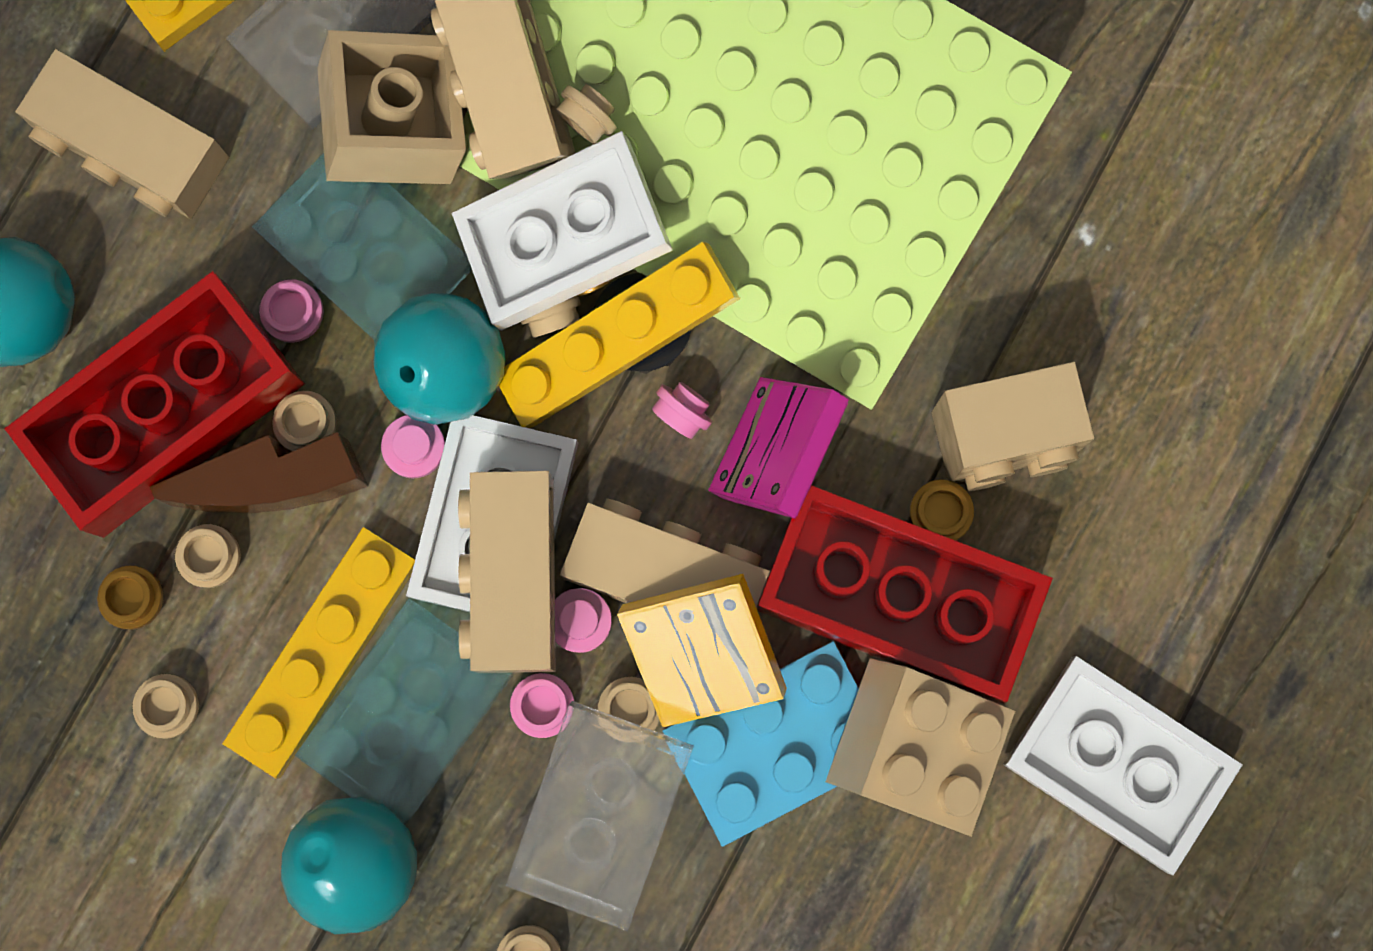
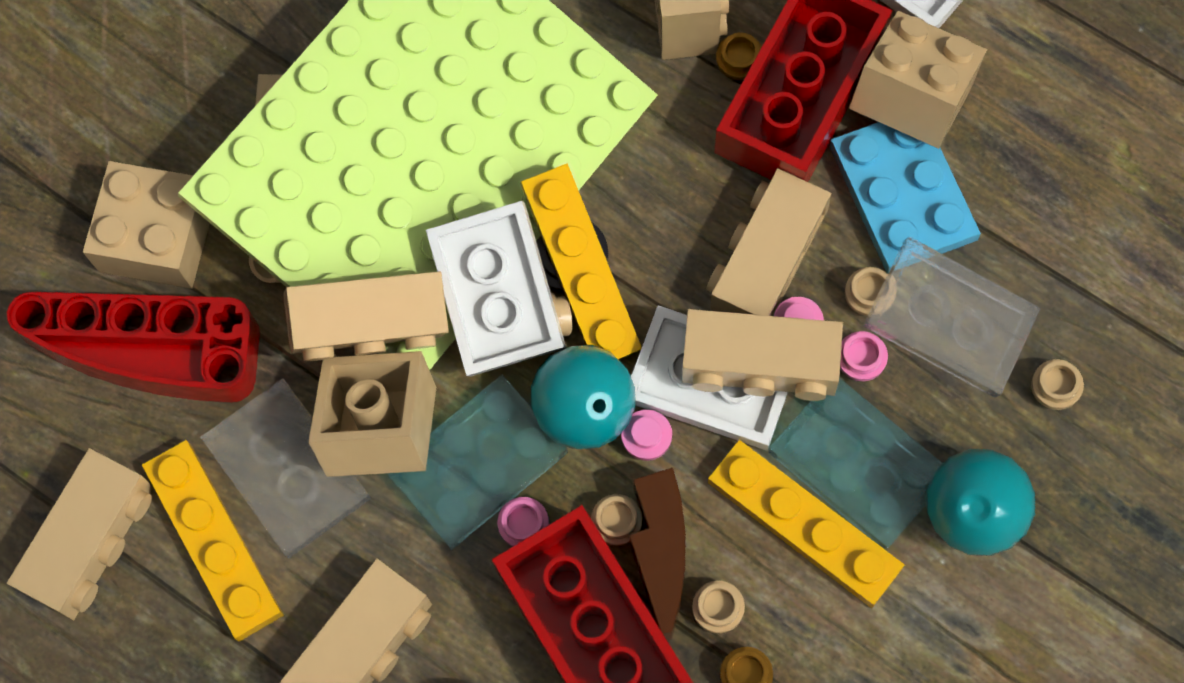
camera: 85 degrees left, 10 degrees down
(165, 706) = (838, 651): tan plate -> none
(587, 112) = (407, 253): tan plate -> none
(682, 409) = (641, 227): bright pink plate -> none
(702, 650) = (834, 220): yellow tile -> none
(779, 446) = (682, 154): dark pink tile -> none

